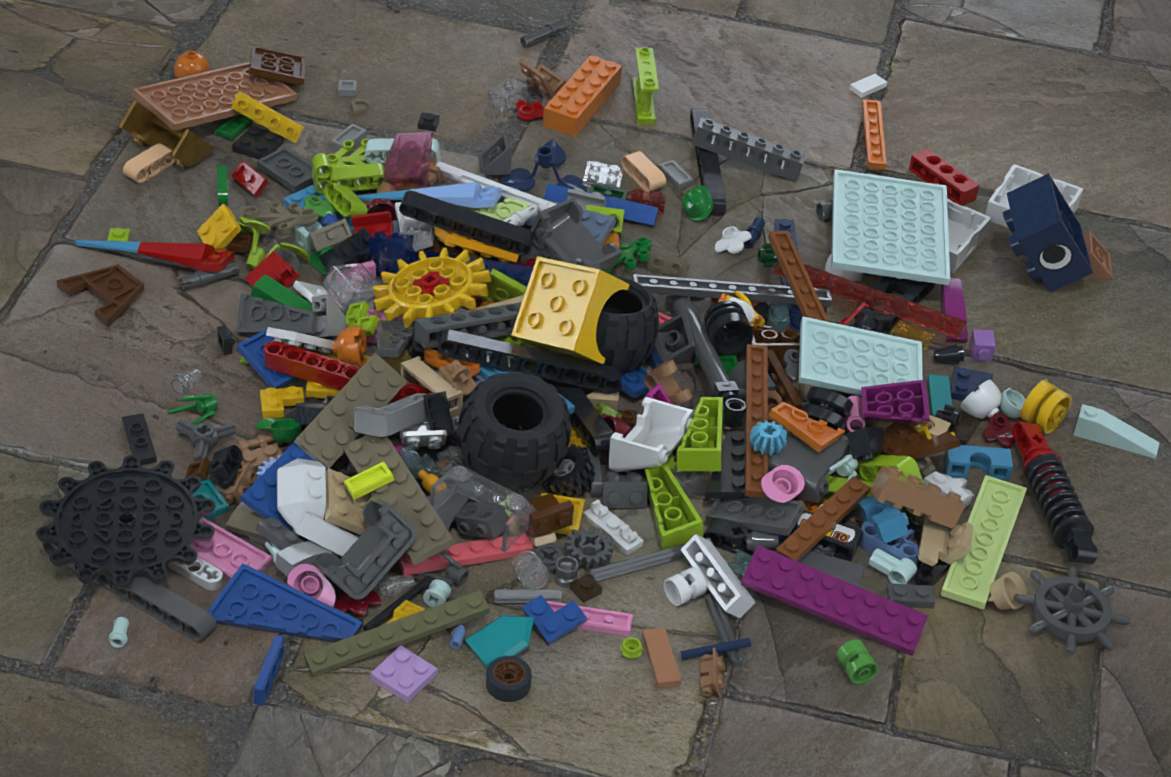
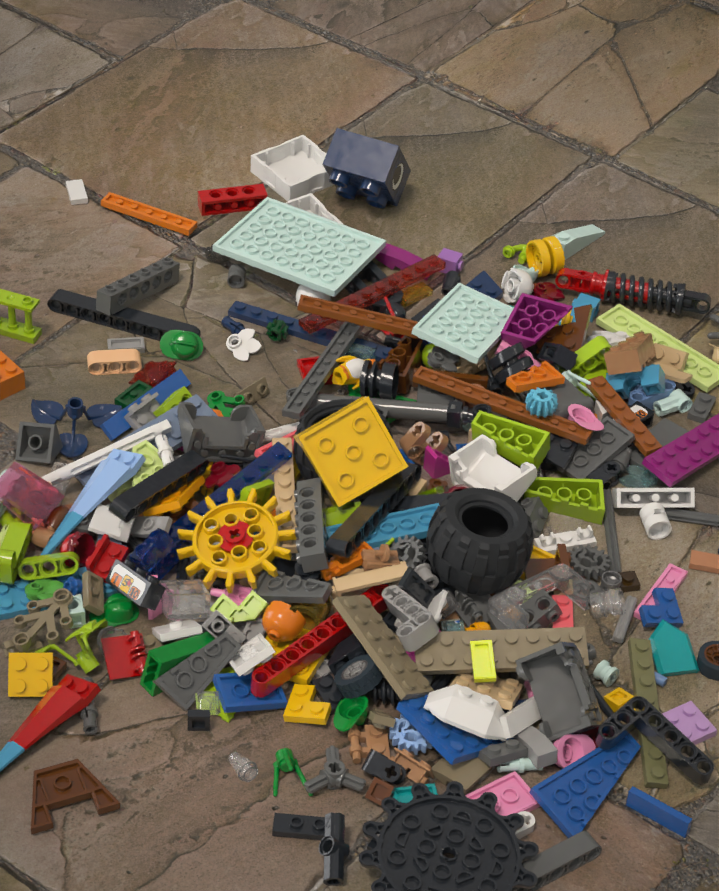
camera: 65 degrees left, 0 degrees up
(114, 453) = (334, 849): none -> black piece
(244, 334) = (208, 701): none -> clear plate
(276, 442) = (380, 720): none -> dark tan plate
(367, 619) = (657, 736): none -> black beam
(602, 175) = (103, 389): clear plate -> none
(631, 648) = (706, 577): lime plate -> none

